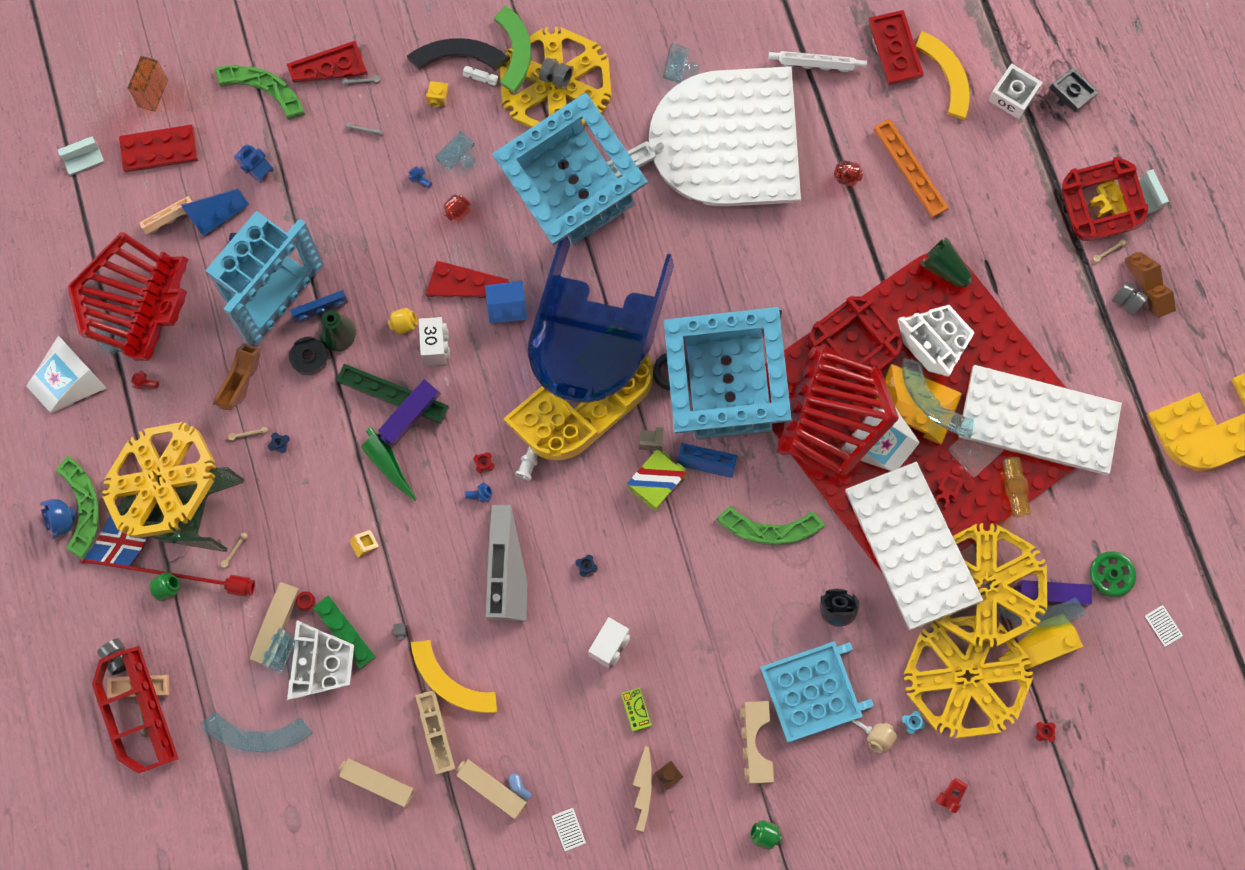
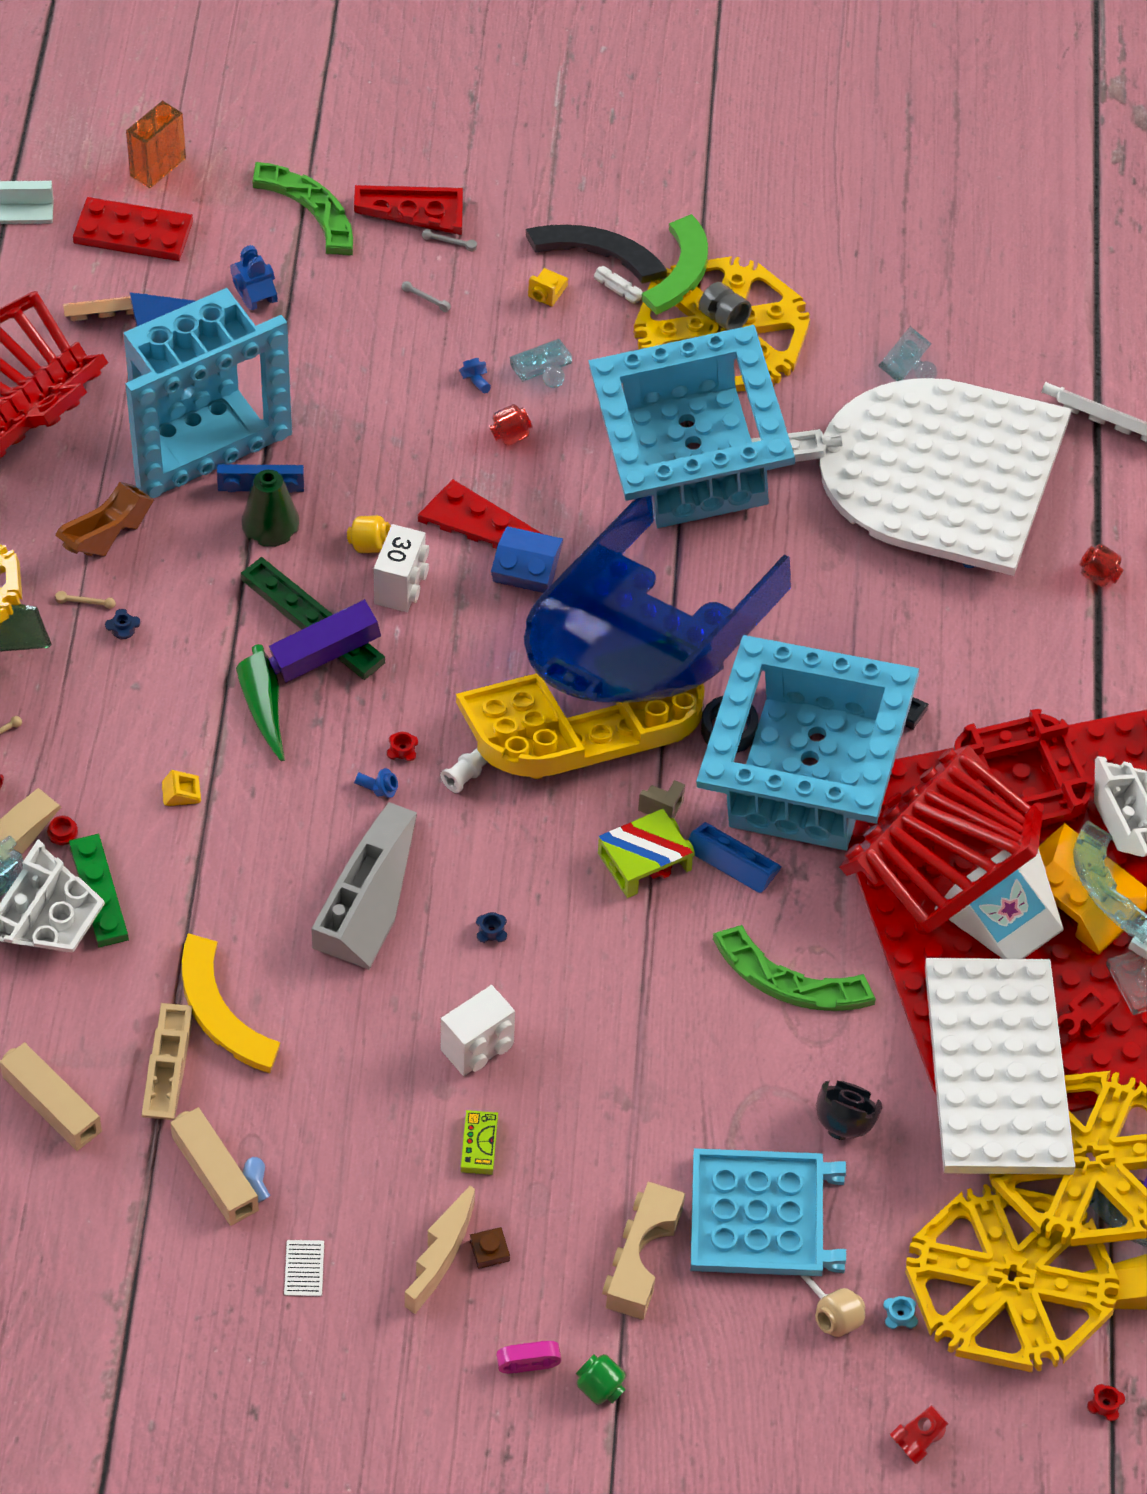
camera: 20 degrees right, 20 degrees down
(317, 361) = (220, 546): black plate -> none
(400, 631) = (179, 913): flat silver piece -> none
(719, 836) = (528, 1357): none -> dark pink beam

